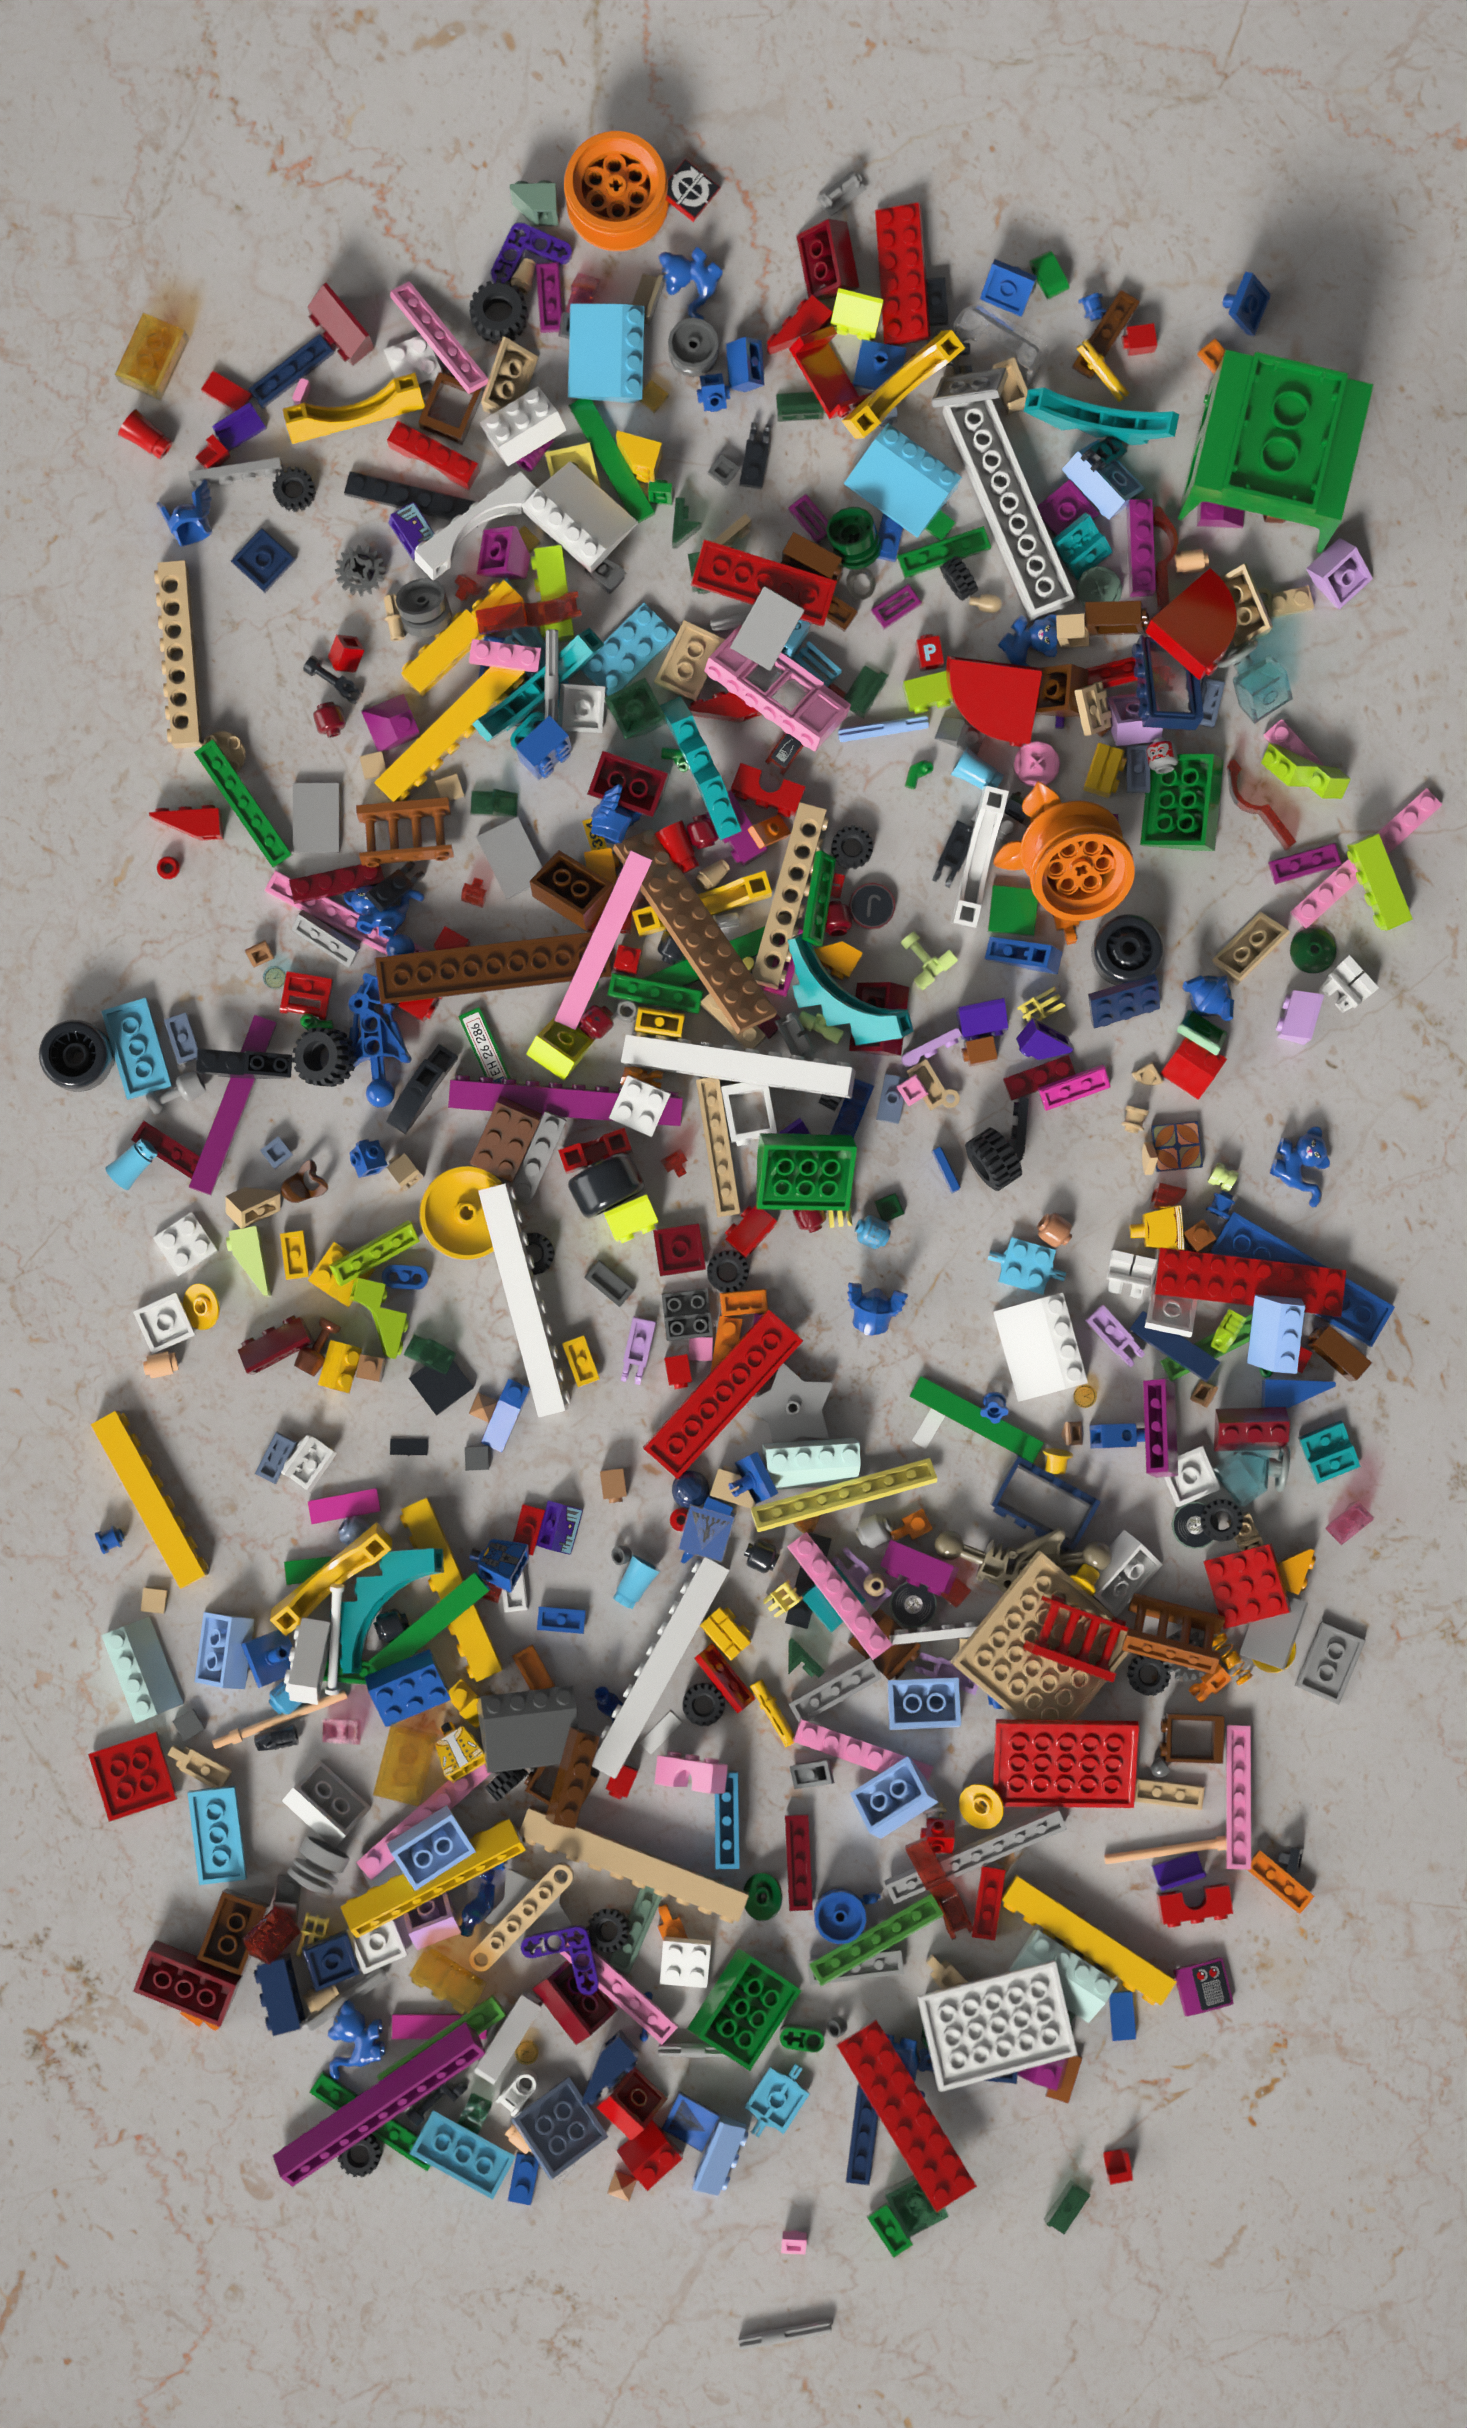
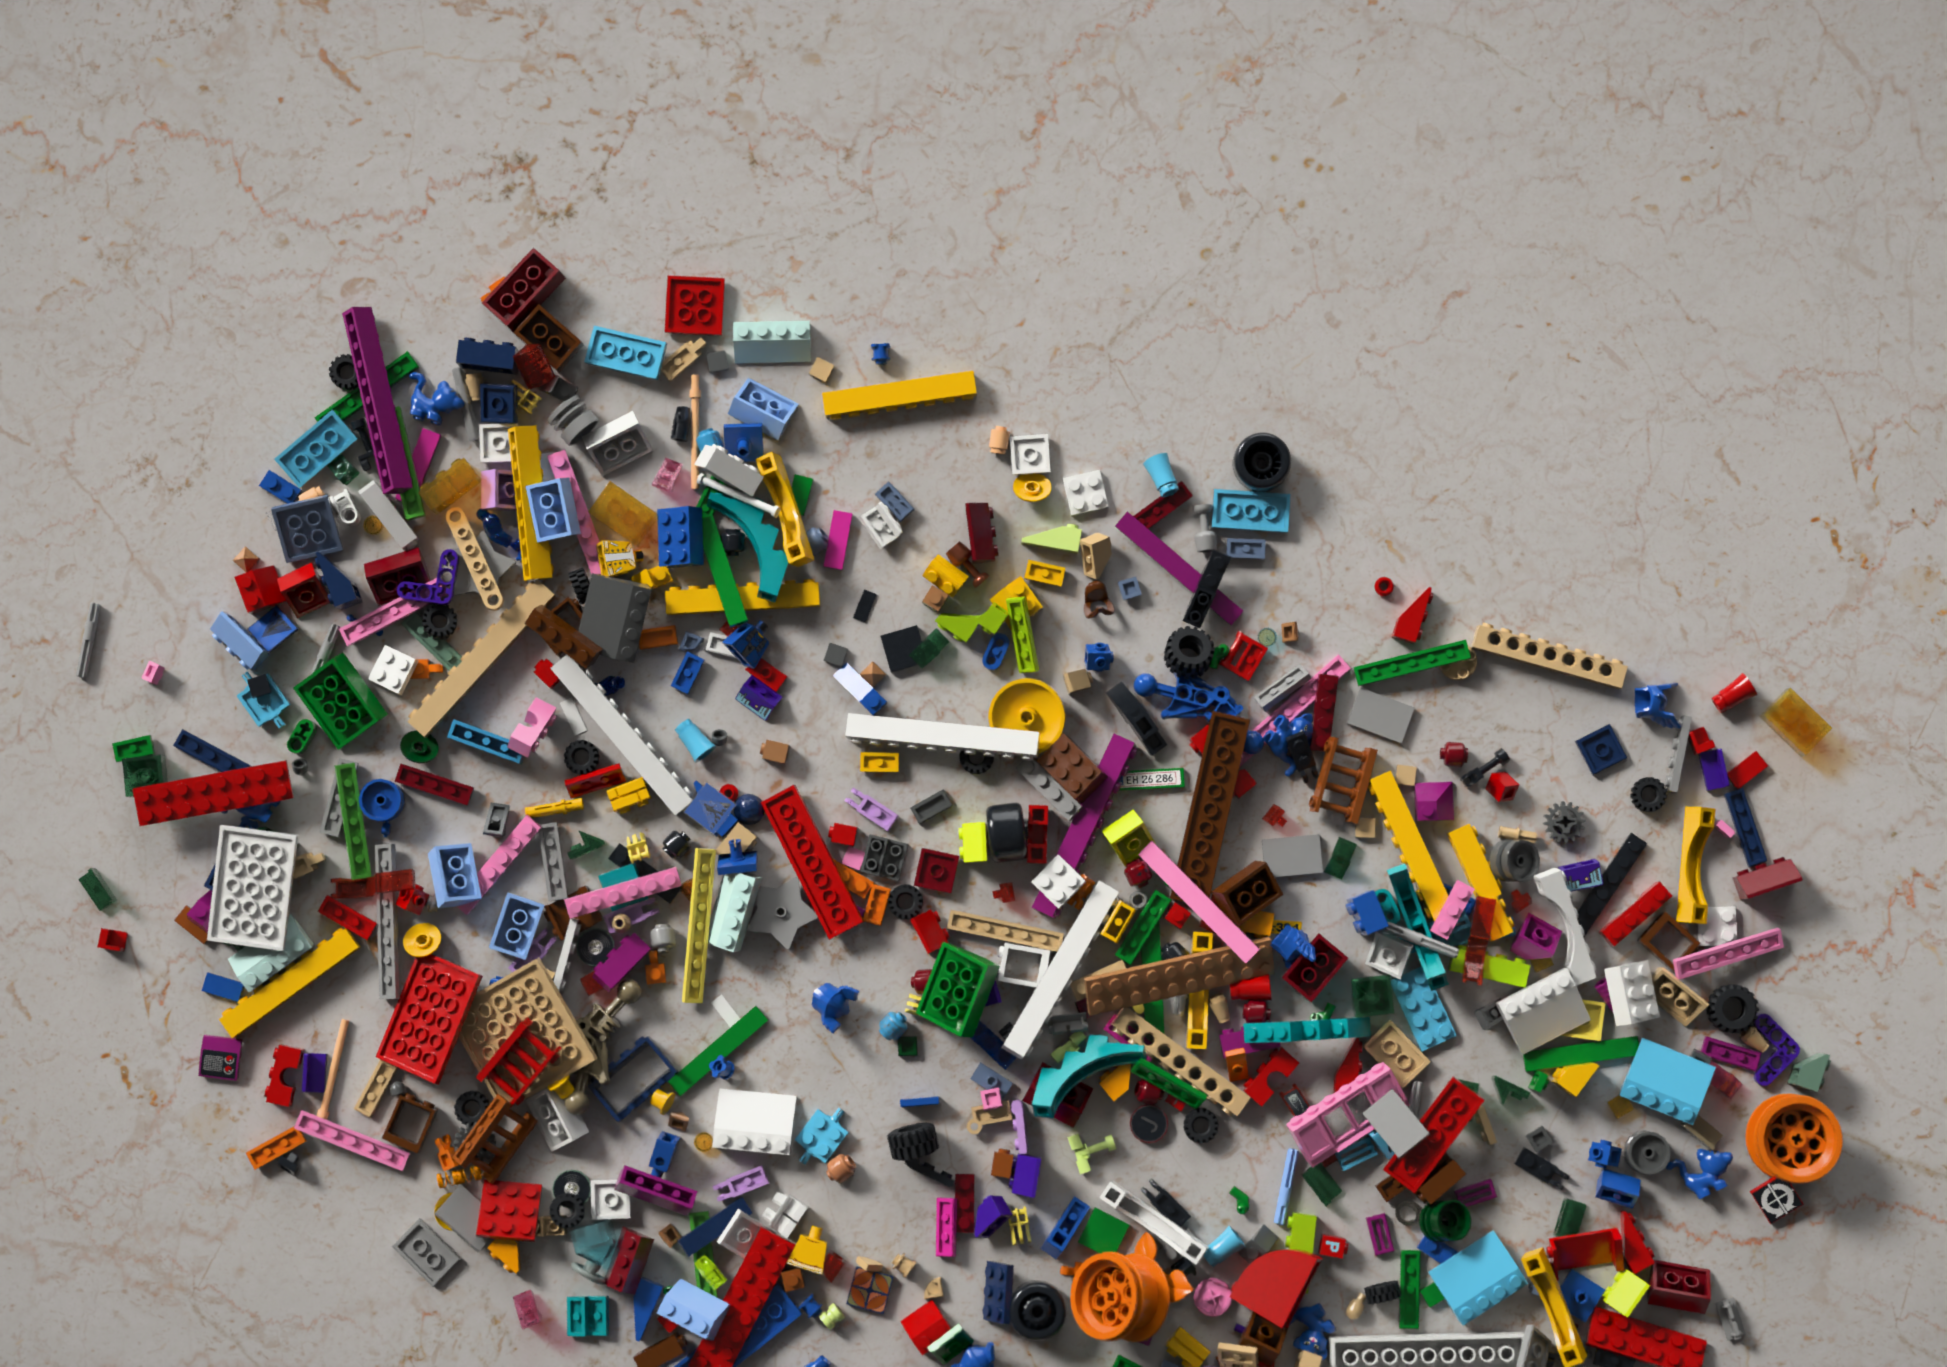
camera: 110 degrees right, 0 degrees up
(524, 1630) = (690, 641): none -> sand blue tile
(762, 2111) = (259, 686): none -> black tile

